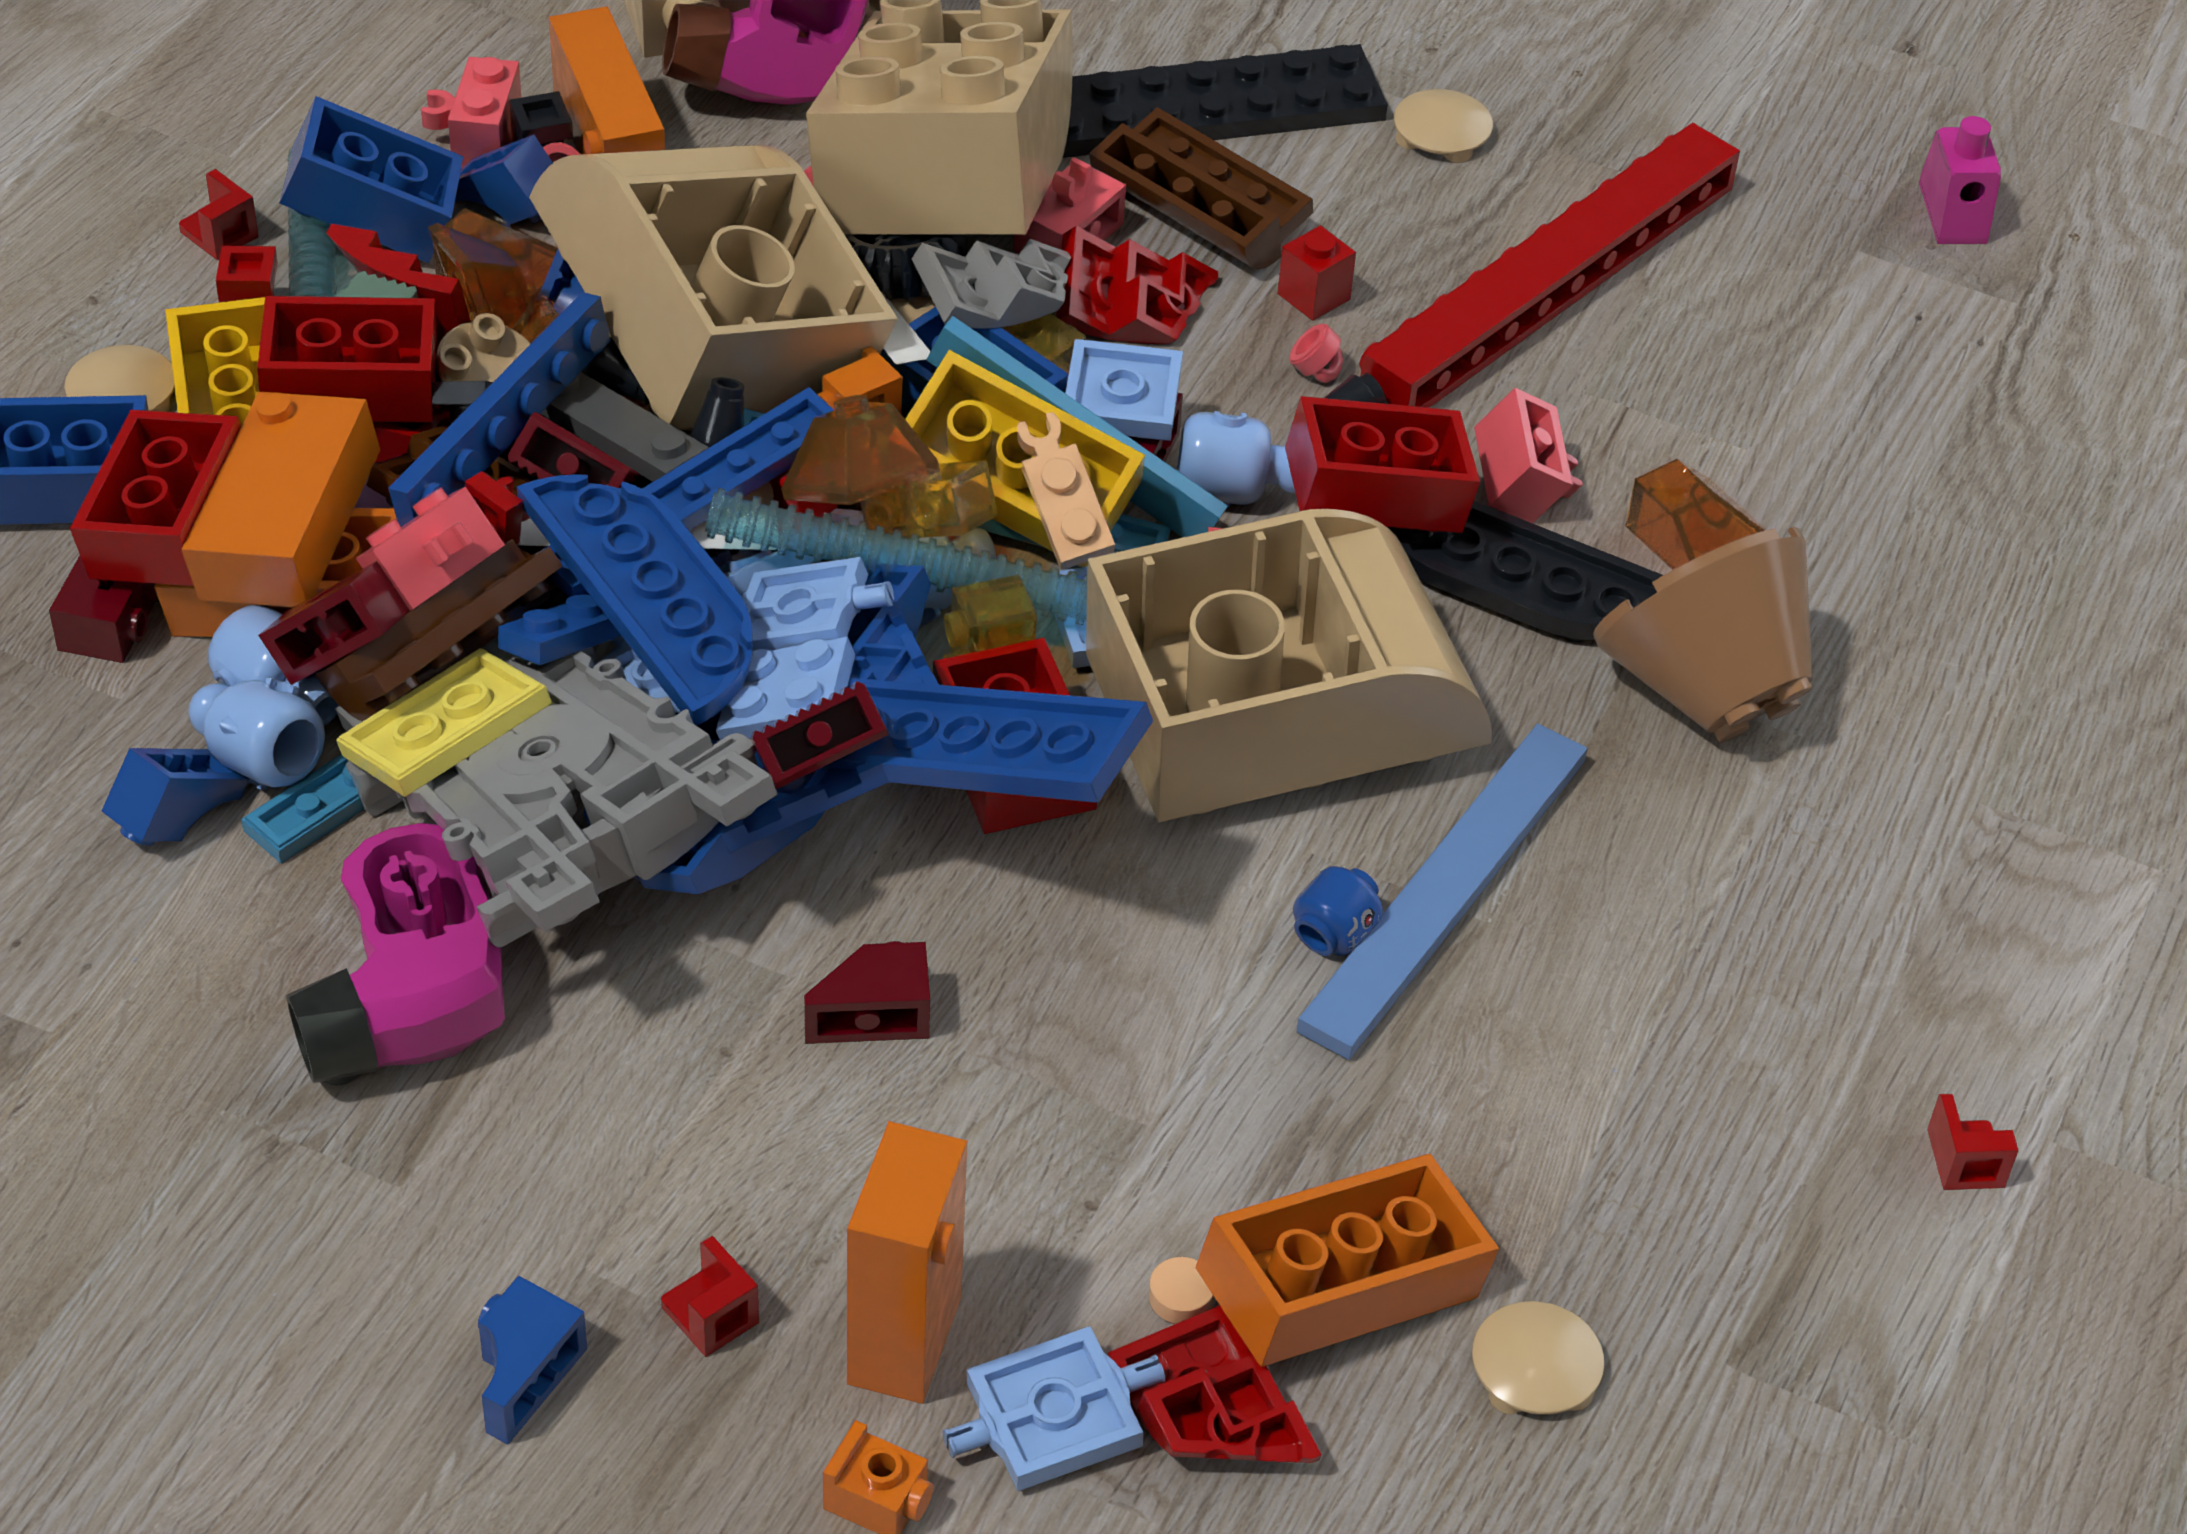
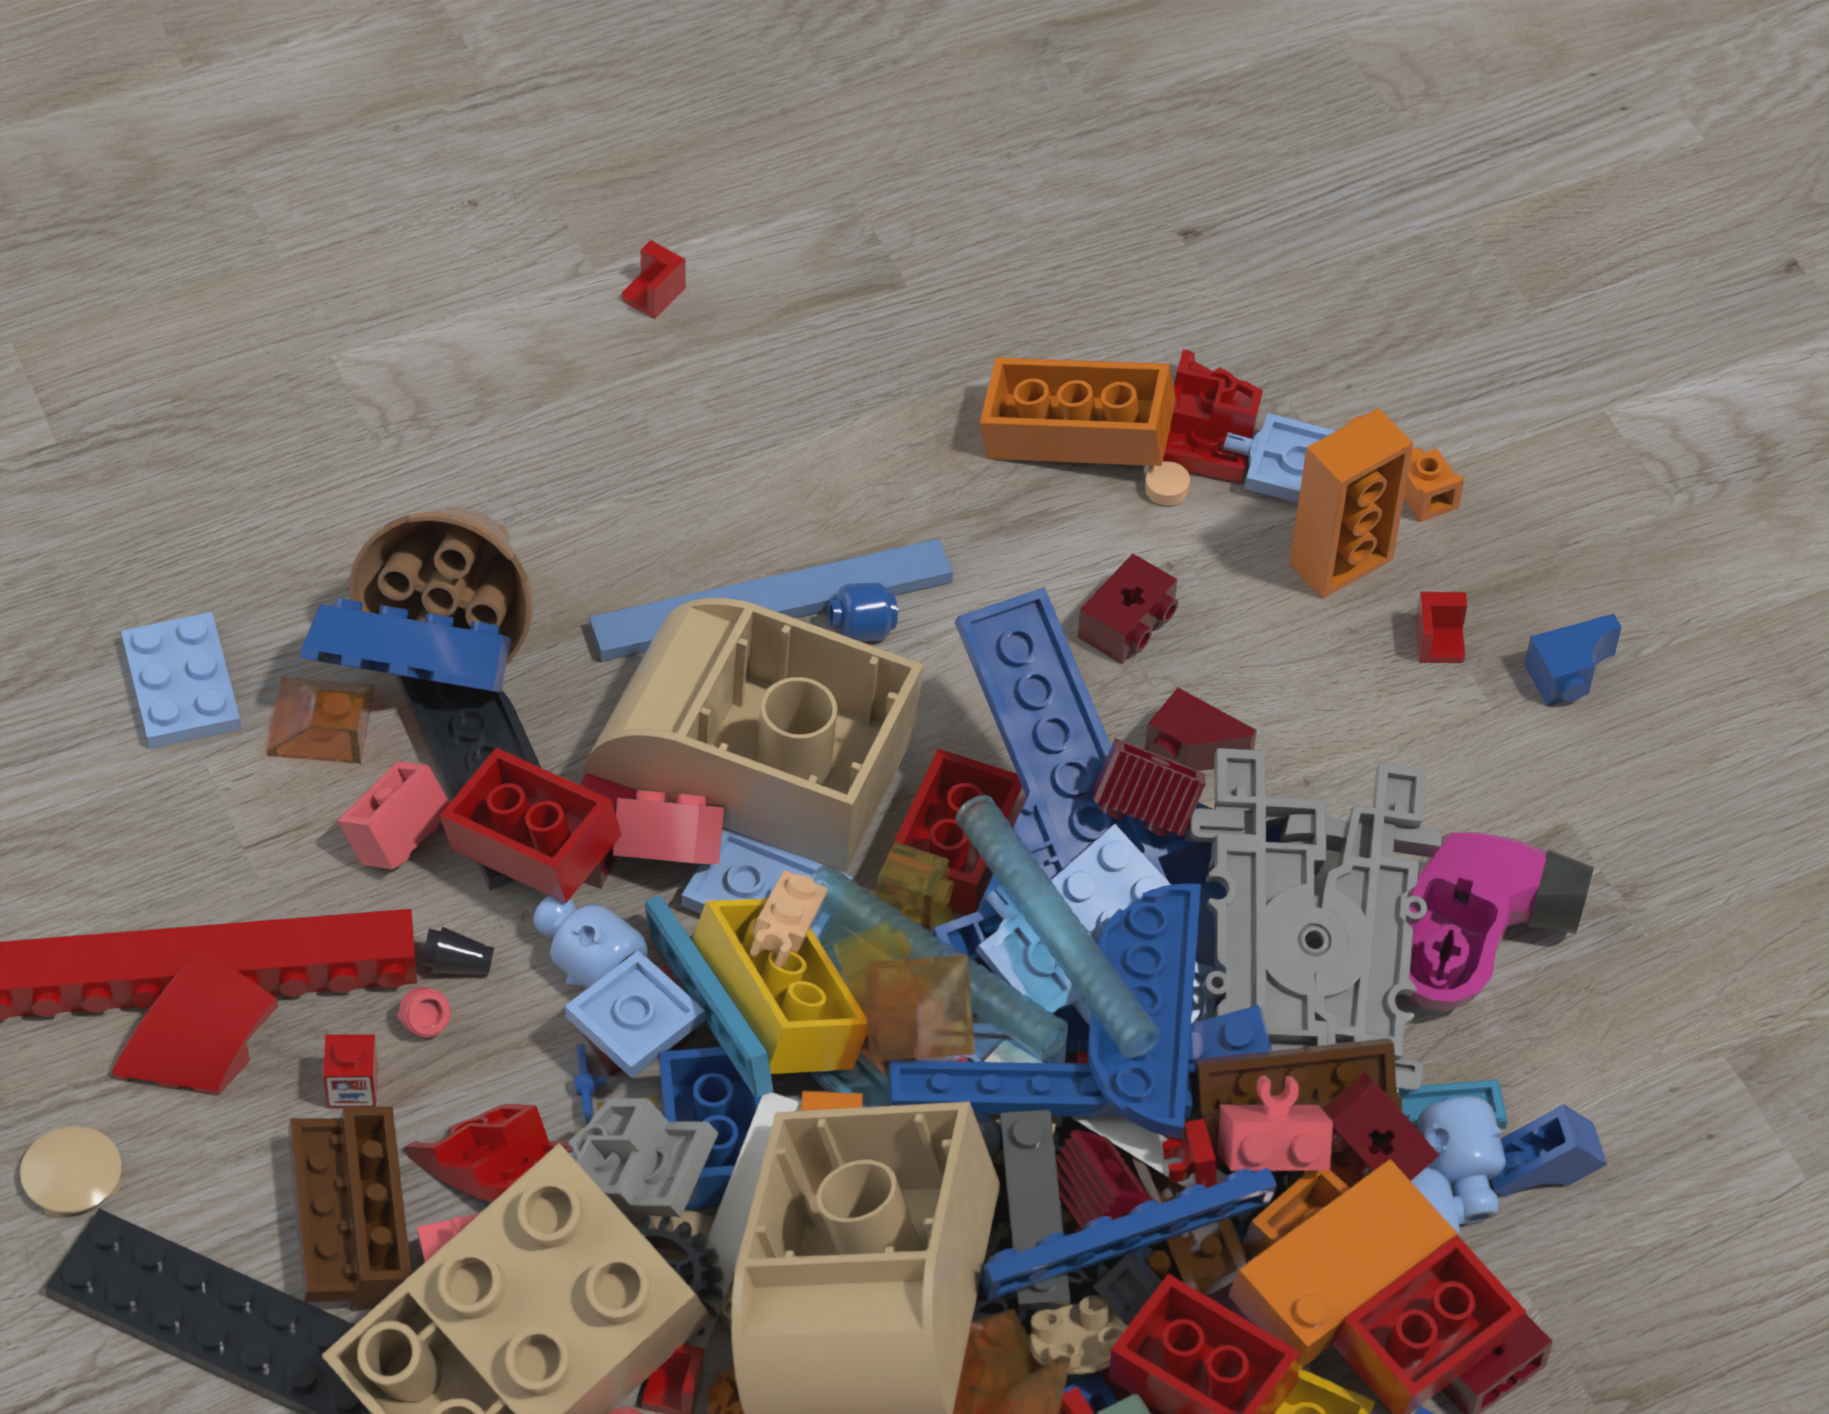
camera: 140 degrees left, 5 degrees up
(443, 721) = (1354, 1010): light yellow tile -> none
(790, 565) = (1057, 927): none -> clear light blue piece
(1075, 1090) = (1128, 609): none -> dark red brick
(1470, 233) = (197, 1028): none -> red slope
(1537, 1359) = (1009, 332): tan dish -> none
(1701, 515) = (408, 647): none -> blue wedge
(1857, 489) = (181, 680): none -> light blue plate

